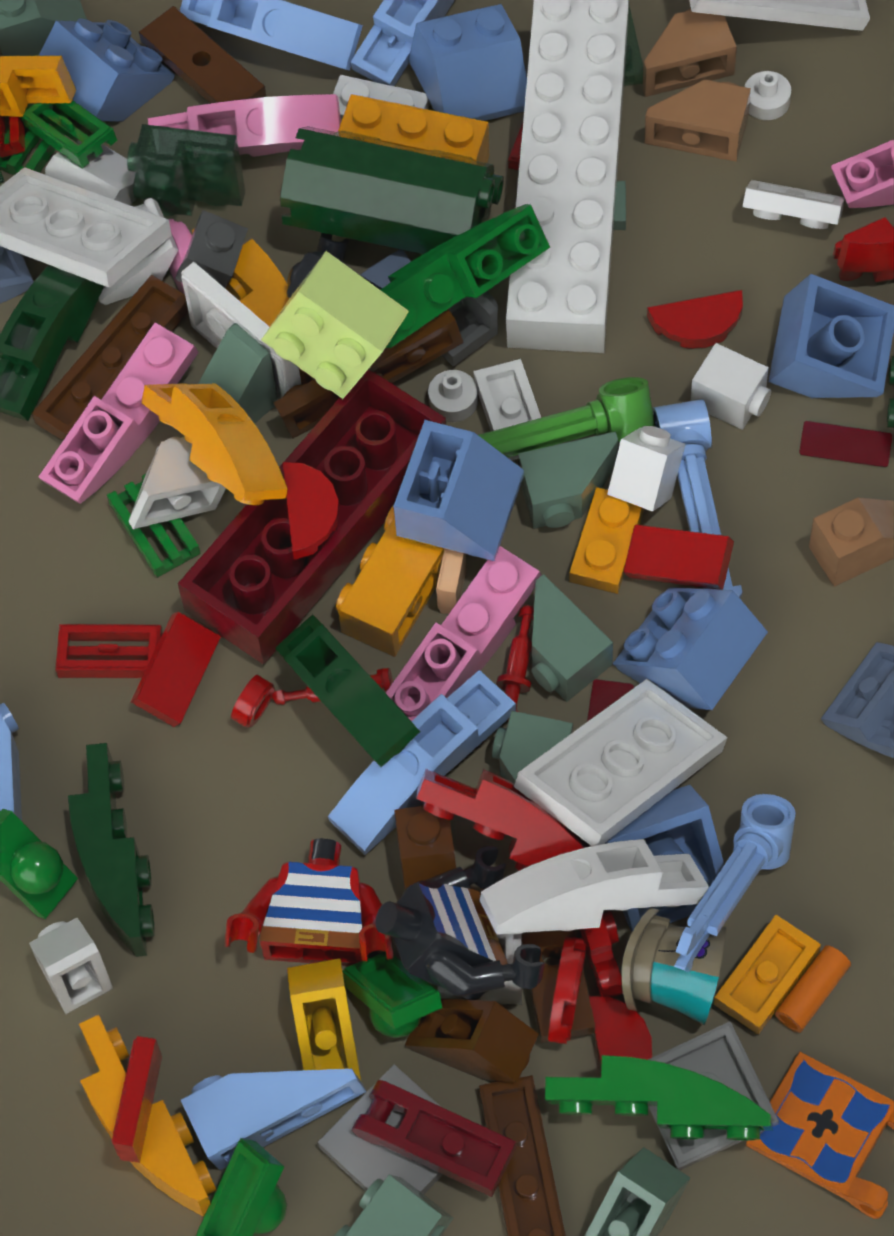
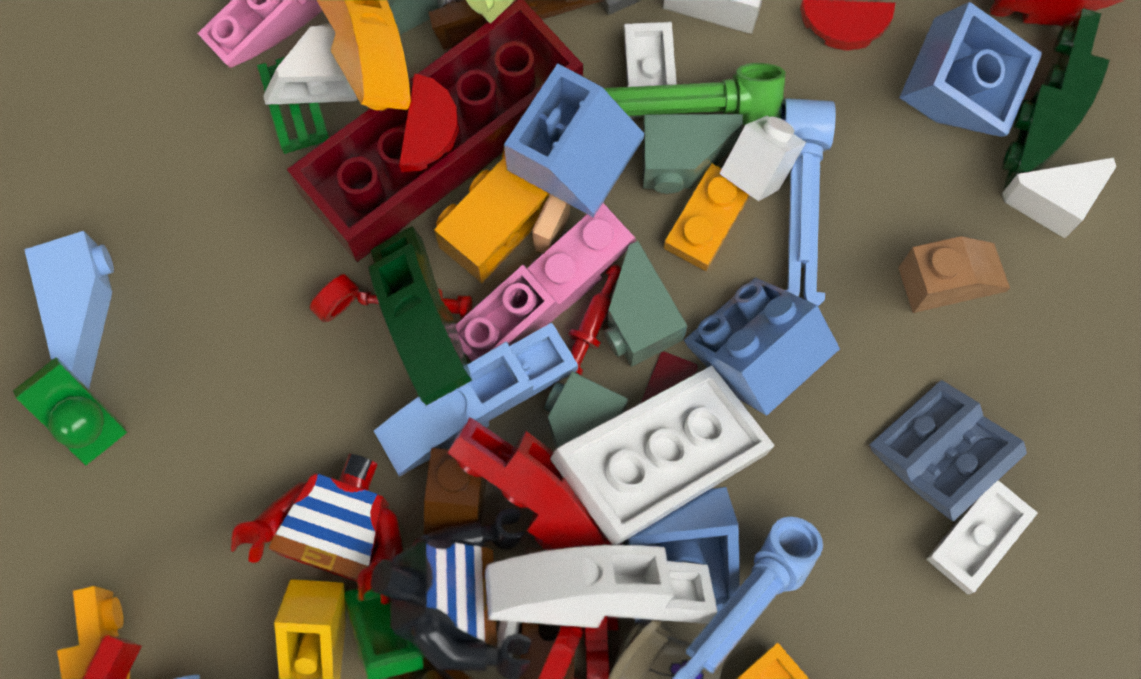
camera: 10 degrees right, 10 degrees up
(71, 964) = (85, 522): white slope -> none
(105, 659) = (257, 226): red tile -> none
(107, 855) = (154, 432): dark green slope -> none
(175, 669) = (272, 249): red tile -> none
(453, 395) = (600, 43): white tile -> none
(678, 557) = (772, 252): red tile -> none
(731, 386) = (863, 94): white brick -> none
(846, 444) = (957, 174): dark red sticker -> none

